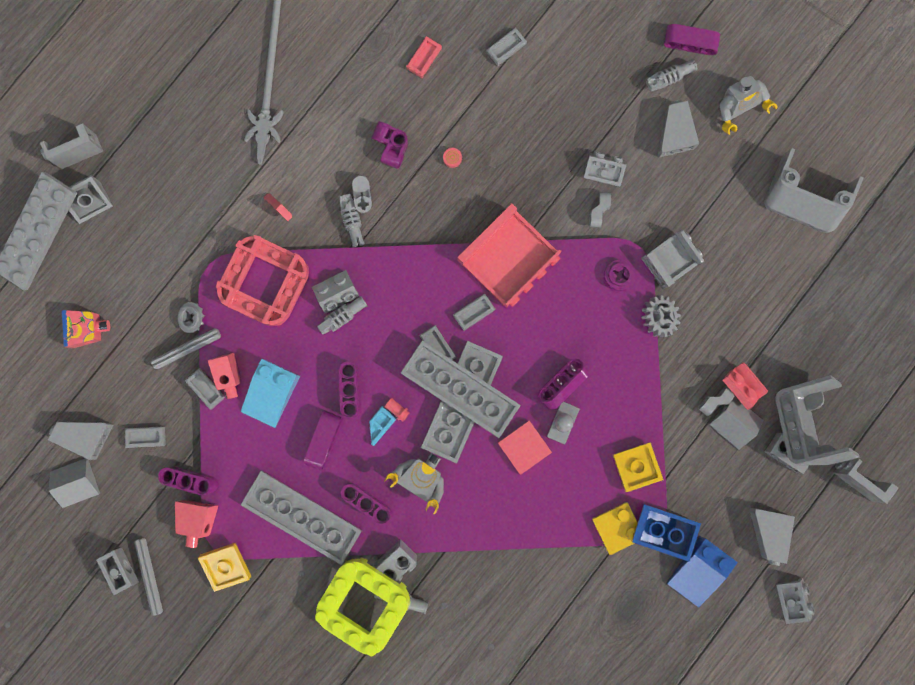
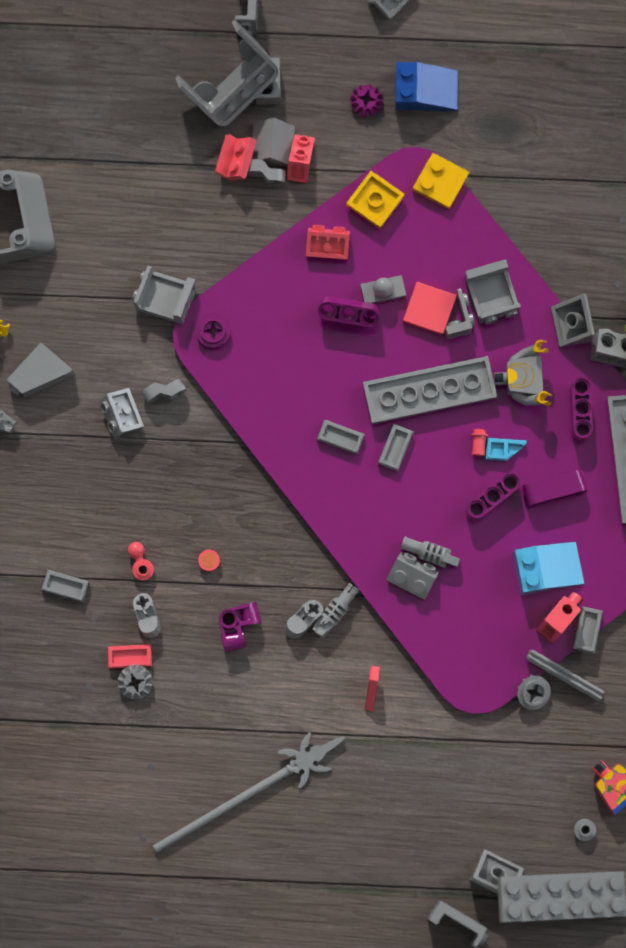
camera: 125 degrees left, 5 degrees down
(75, 288) = (578, 833): none -> light grey plate
(238, 268) = (482, 639): coral plate -> none
(406, 53) = (138, 672): none -> light grey gear
(437, 547) = (573, 321): none -> light grey slope
(444, 86) = (144, 606): none -> light grey piece
(460, 389) = (420, 396): light grey plate -> none
(494, 456) = (459, 328): none -> light grey bracket
(495, 110) = (136, 551): none -> coral plate
(502, 503) = (492, 292): none -> light grey panel
(509, 257) = (267, 439): coral panel -> none
(629, 407) = (327, 242): none -> coral bracket
(661, 316) = (225, 270): light grey gear -> none
(666, 532) = (414, 136): blue slope -> none
(711, 434) = (300, 158): none -> coral bracket
(713, 519) = (372, 107): none -> magenta gear
(773, 534) = (348, 49): light grey slope -> none

